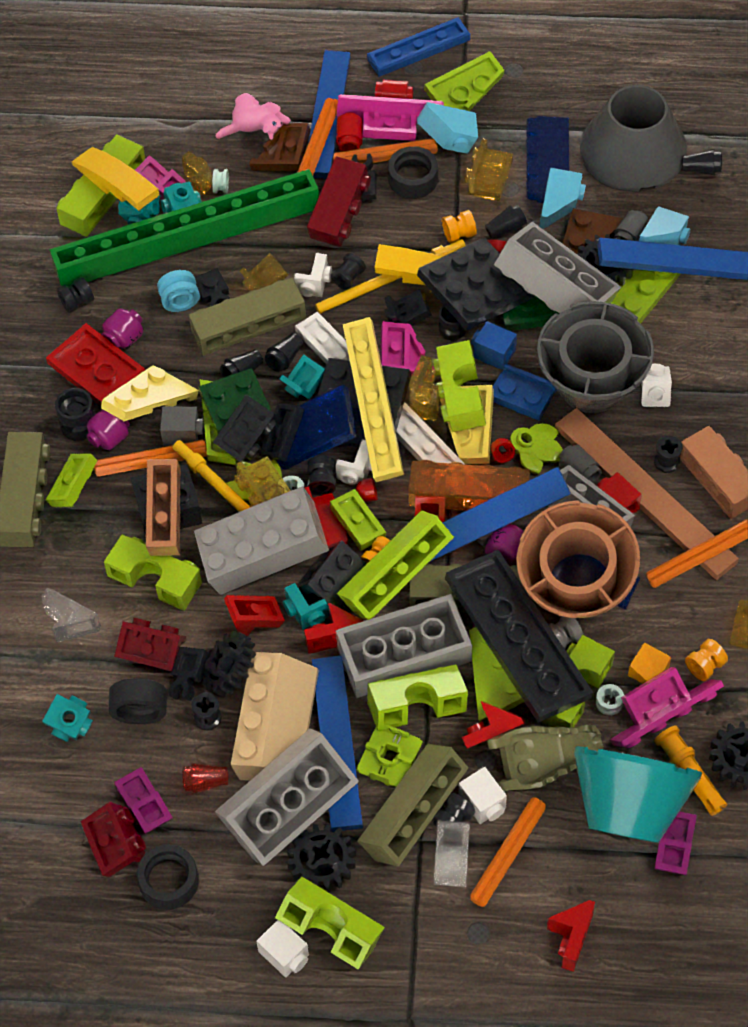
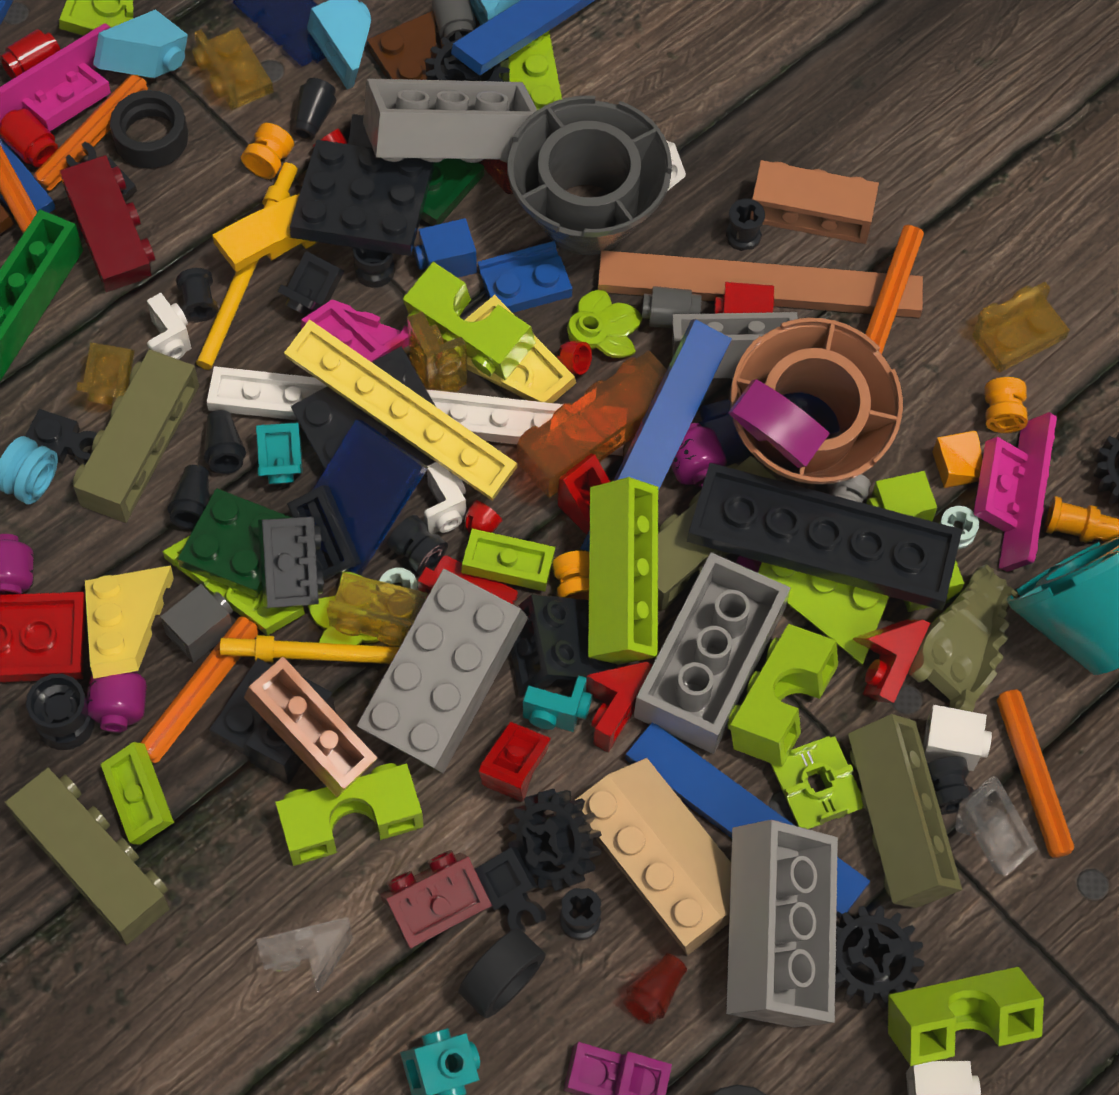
camera: 50 degrees left, 5 degrees up
(540, 551) = (779, 421): none -> magenta slope

